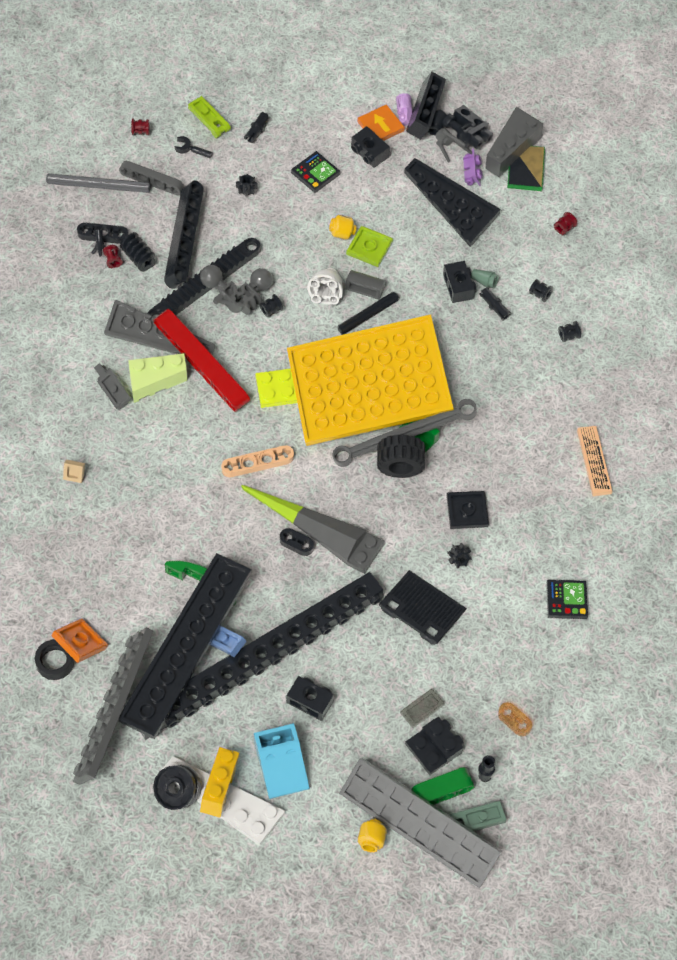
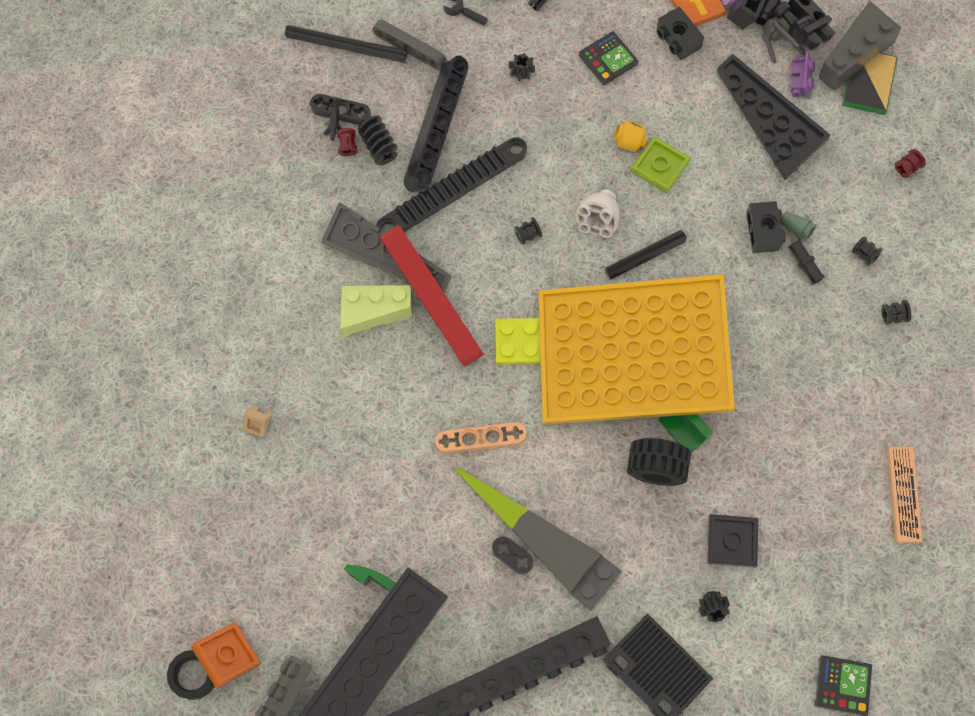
camera: 15 degrees right, 10 degrees up
(112, 386) = (320, 315): dark grey hinge -> none
(228, 641) = (405, 690): medium blue plate -> none
(260, 280) = (519, 196): dark grey piece -> none
(365, 284) = (648, 215): dark grey brick -> none
(413, 429) = (669, 428): dark grey piece -> none

